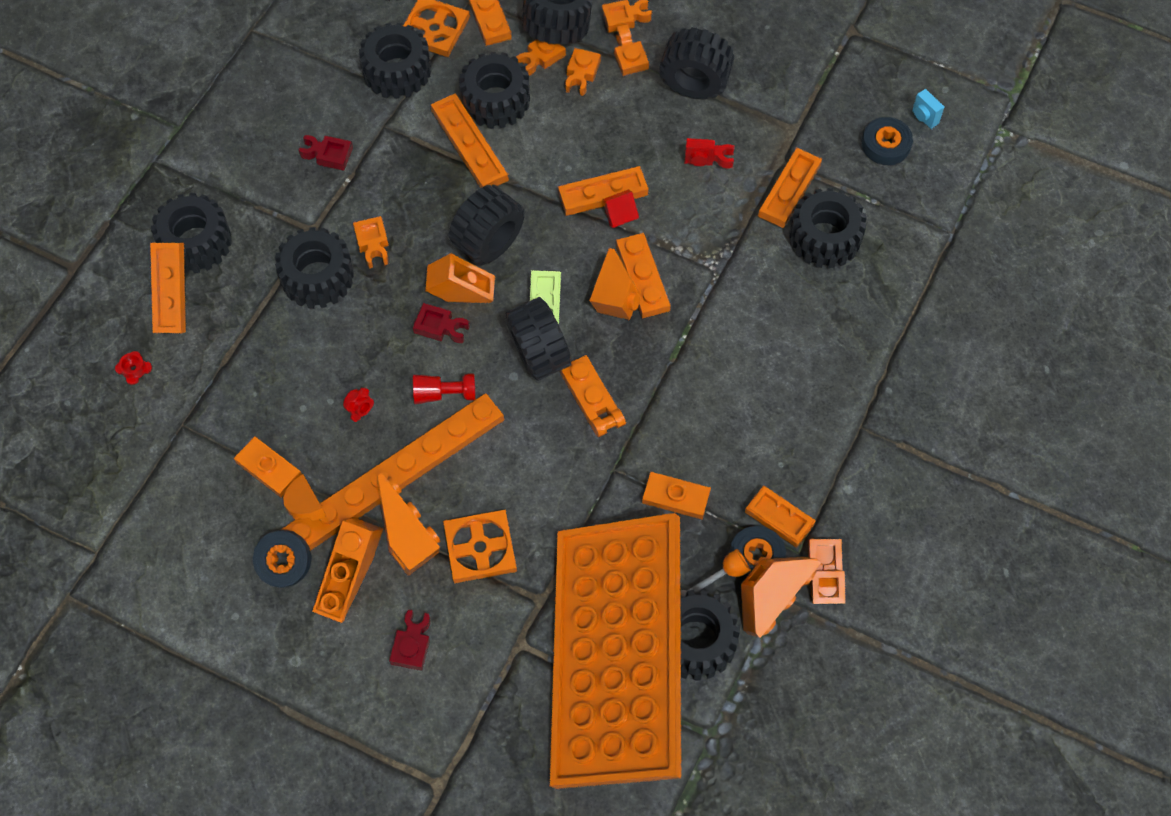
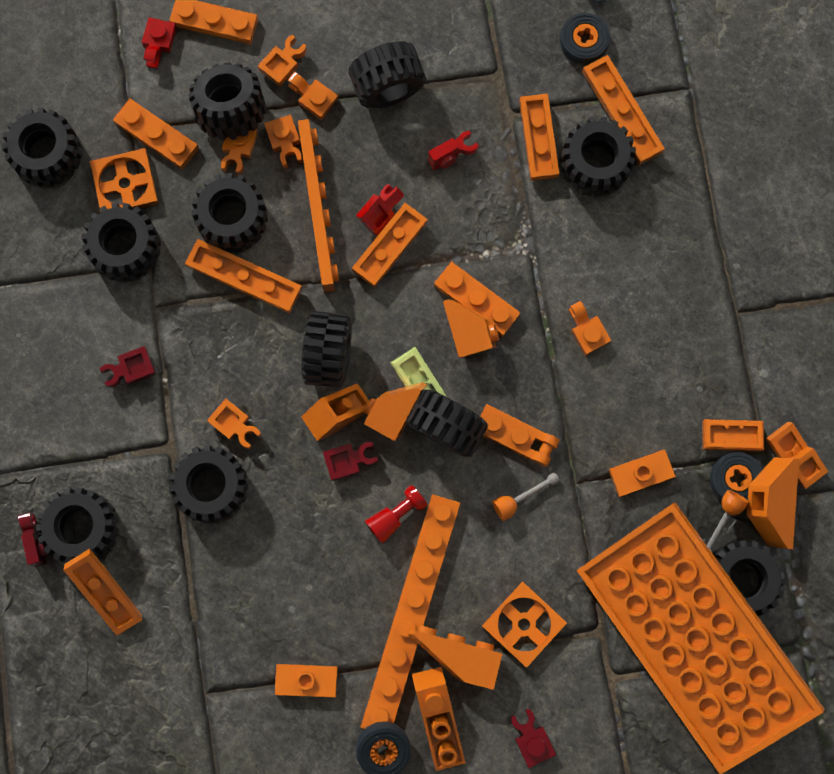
camera: 35 degrees left, 15 degrees up
(127, 362) = (119, 670): red plate -> none
(142, 229) = (33, 549): none -> dark red plate
(301, 500) = (360, 692): orange tile -> none
(358, 403) = (338, 576): red plate -> none
(496, 301) = (391, 409): none -> orange slope
(540, 443) = (506, 506): none -> hinge
(564, 132) = (316, 194): none -> orange plate
(614, 159) = (378, 211): none -> red plate
(620, 208) = (417, 252): red tile -> none
(717, 358) = (589, 332): none -> orange plate
(879, 210) = (623, 108): none -> orange plate

